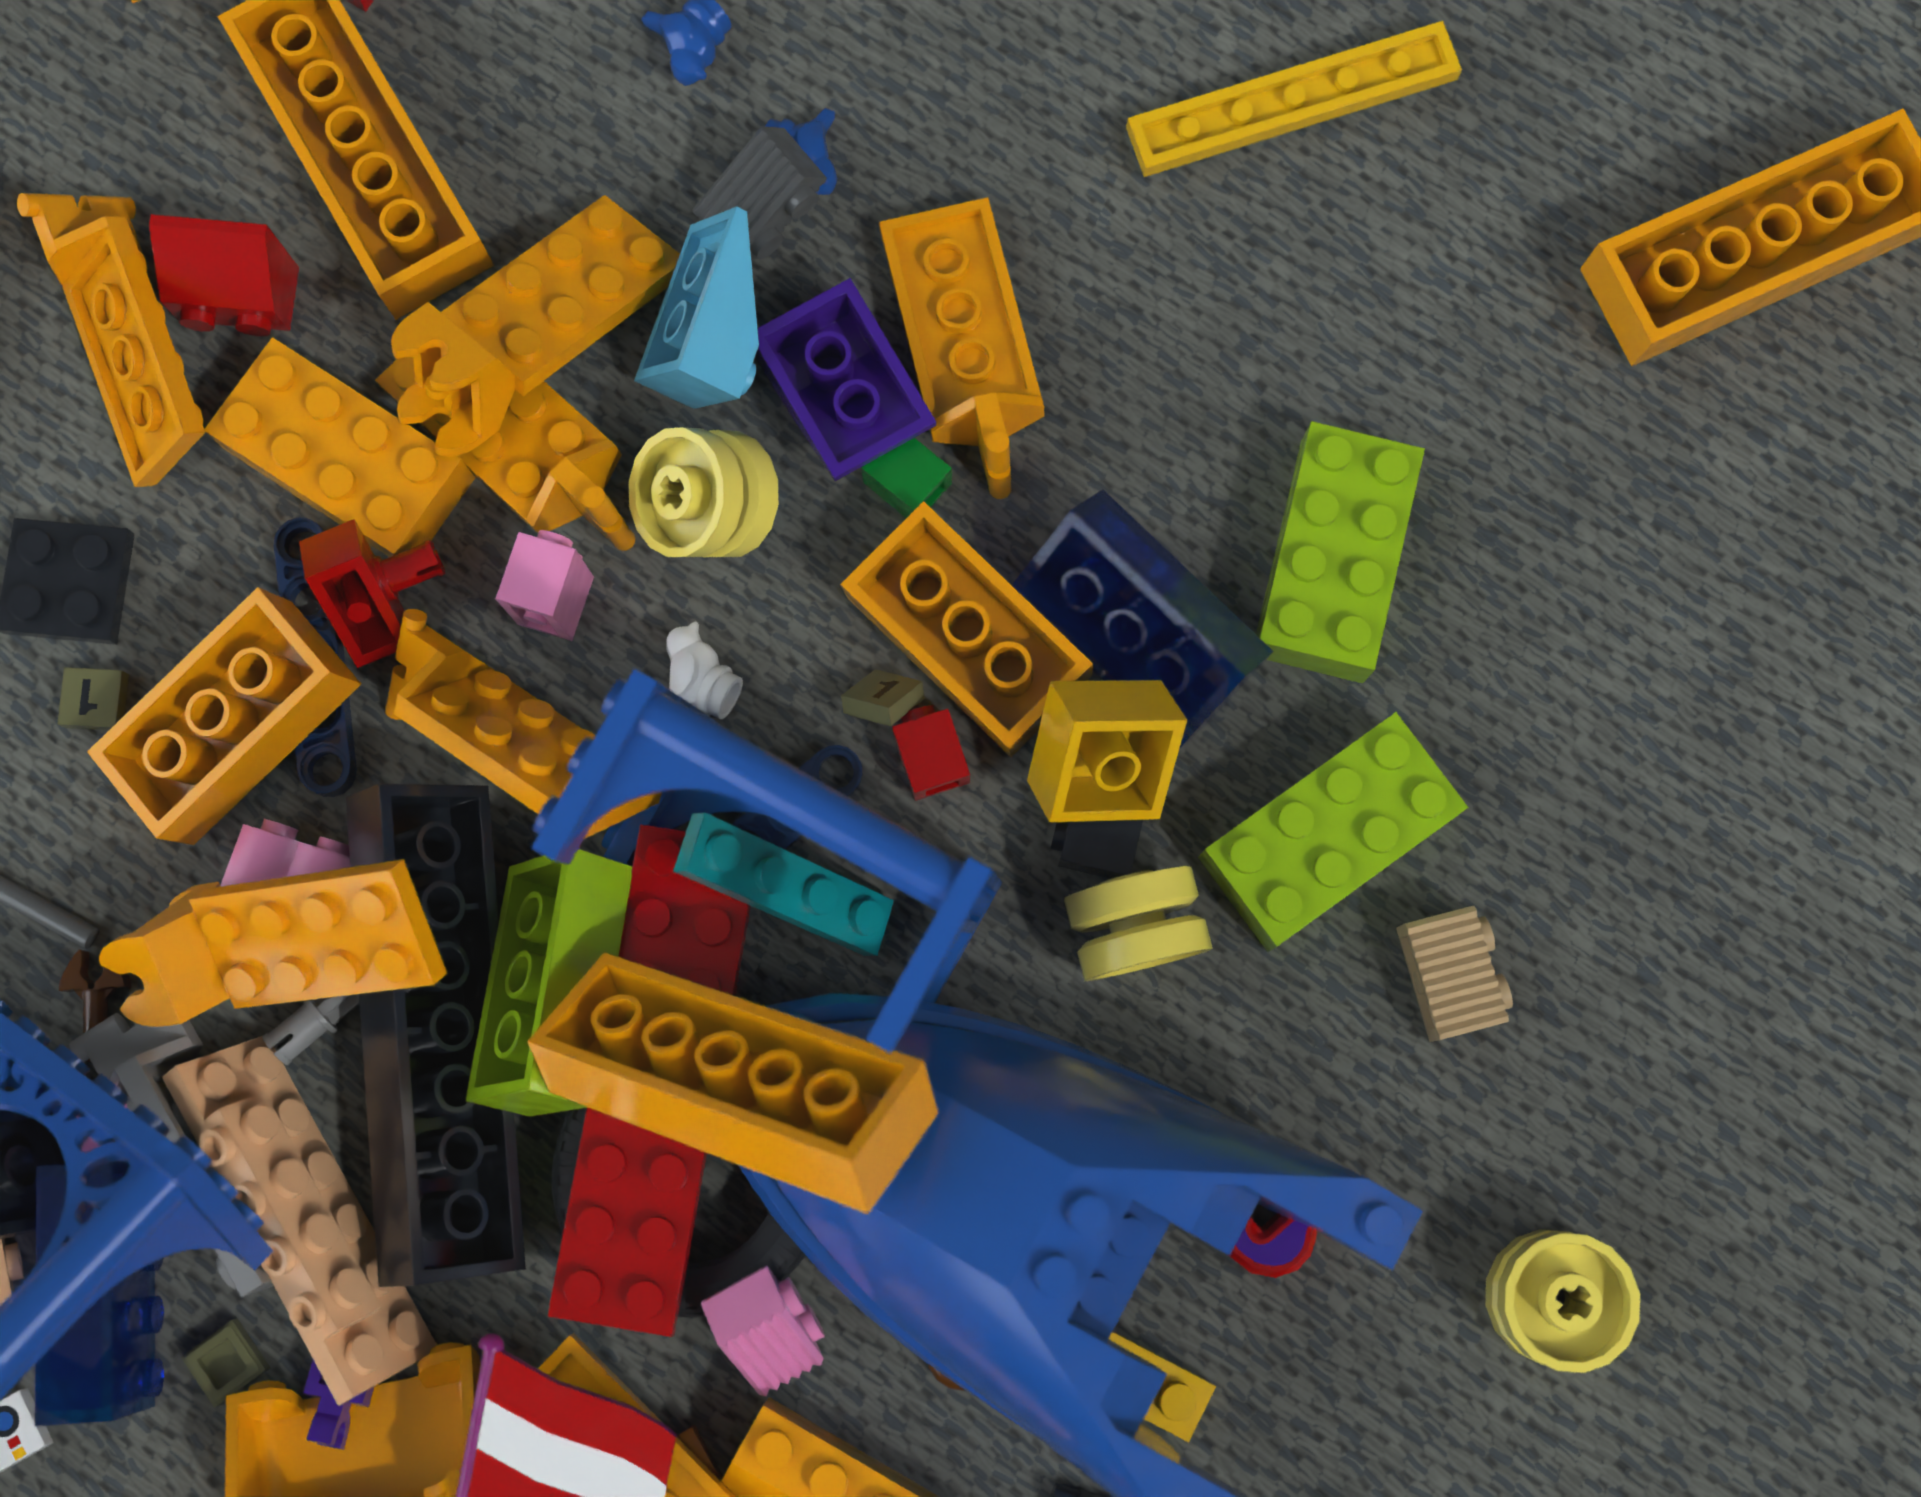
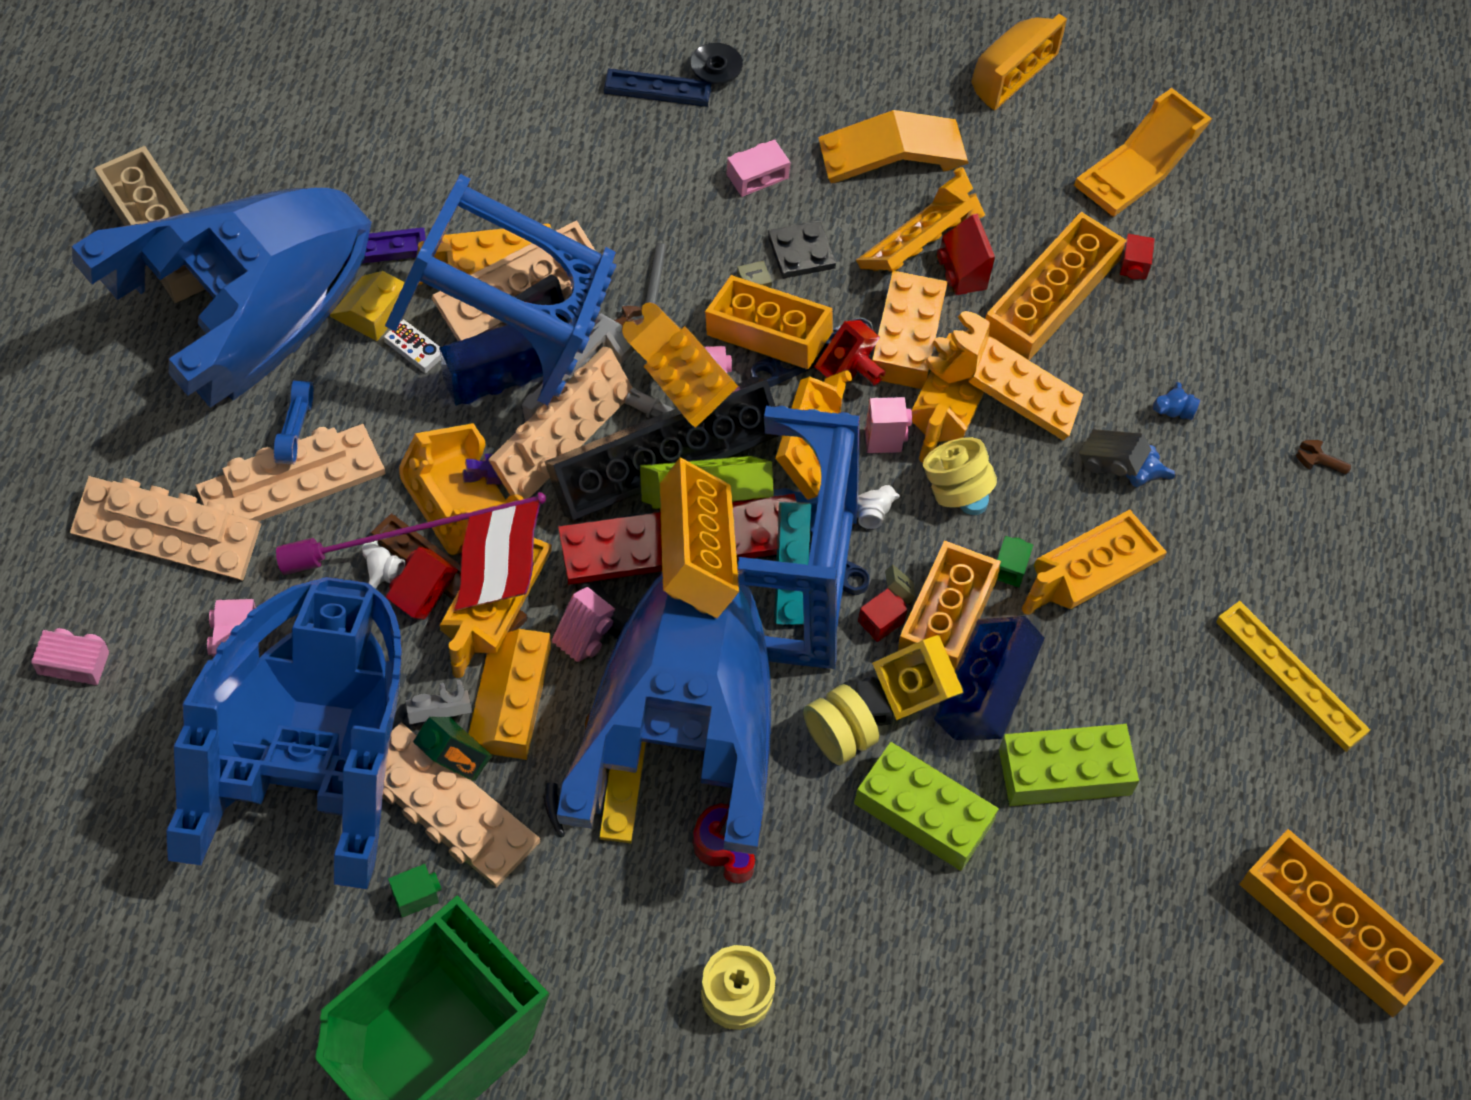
camera: 65 degrees right, 20 degrees down
(225, 1362) = (487, 423): olive tile -> none
(708, 318) = (1035, 448): medium azure slope -> none
(841, 380) = (1044, 511): dark purple slope -> none
(1455, 973) = (880, 888): tan brick -> none

